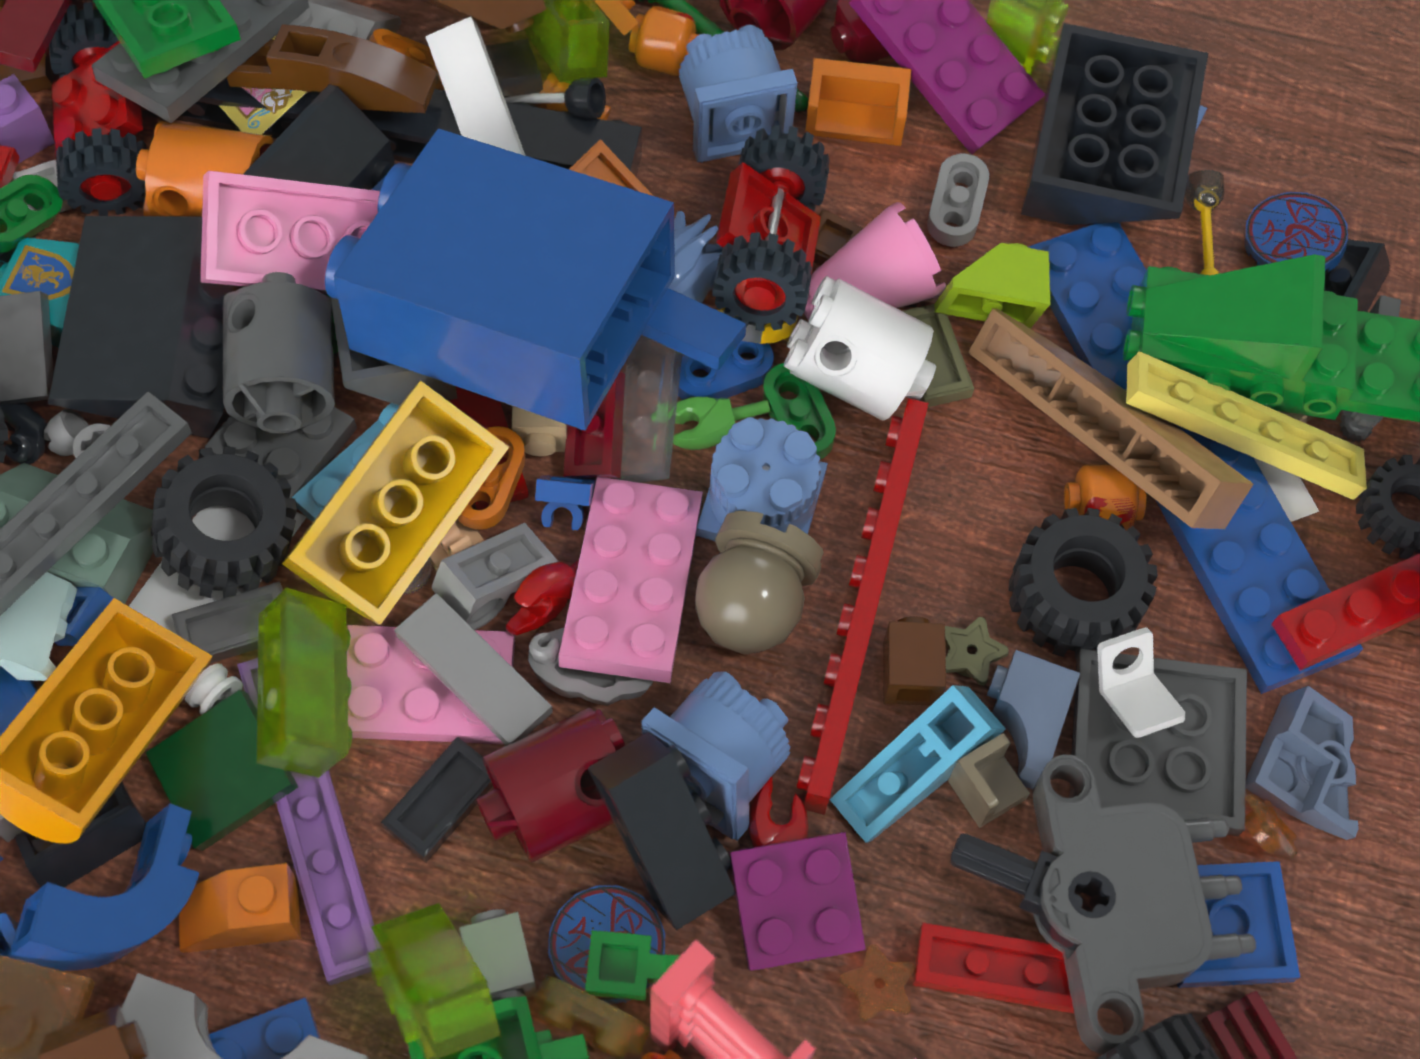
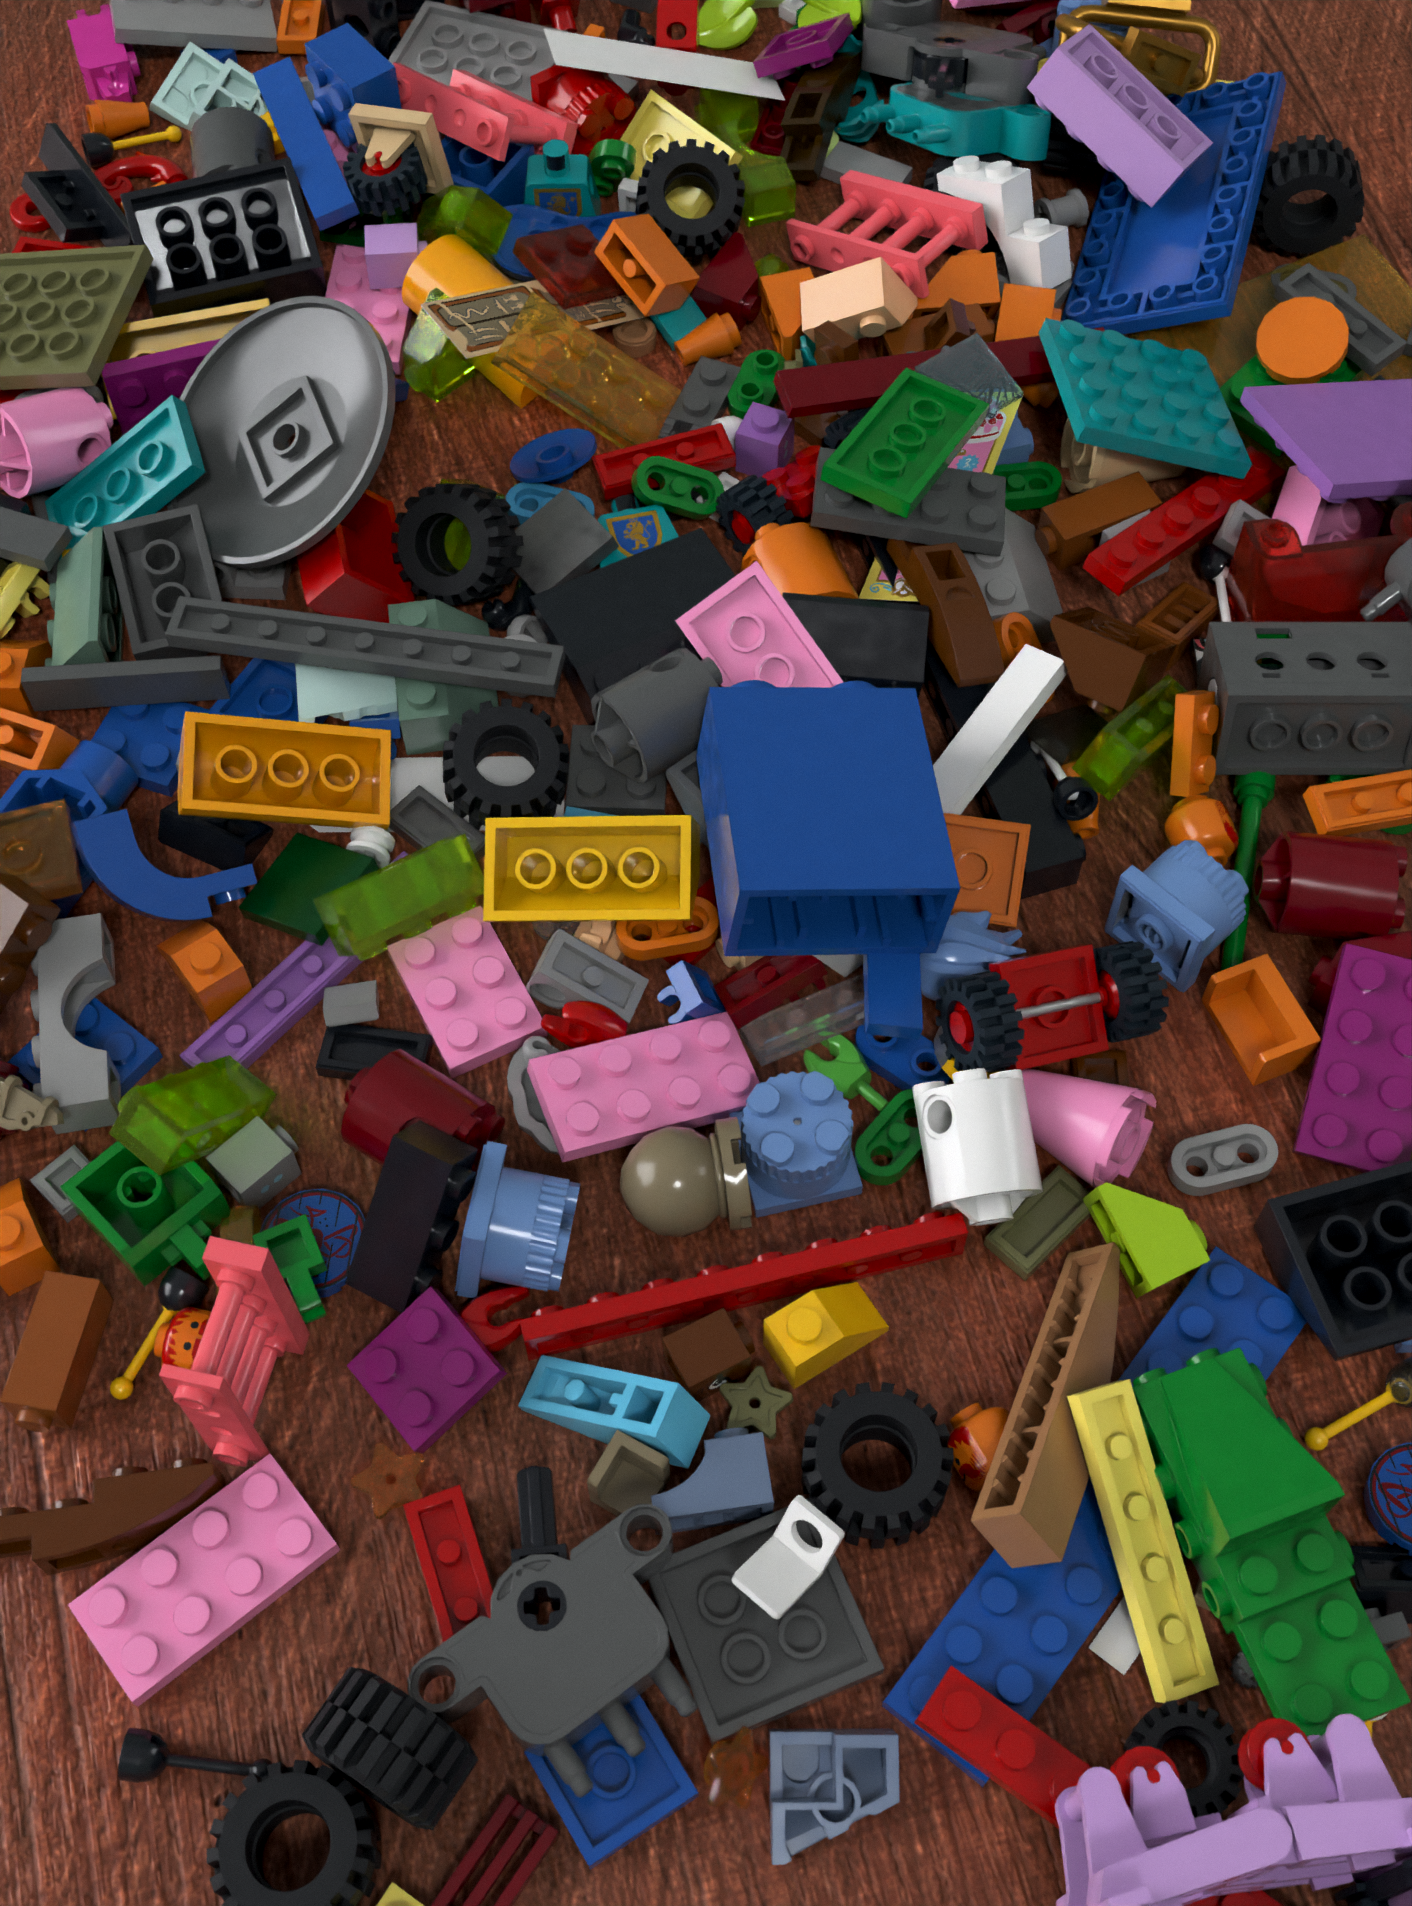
camera: 65 degrees right, 5 degrees down
(377, 790) = (351, 1003): none -> light grey tile
(473, 671) = (484, 1010): light grey tile -> none
(940, 566) = (821, 1330): none -> yellow slope

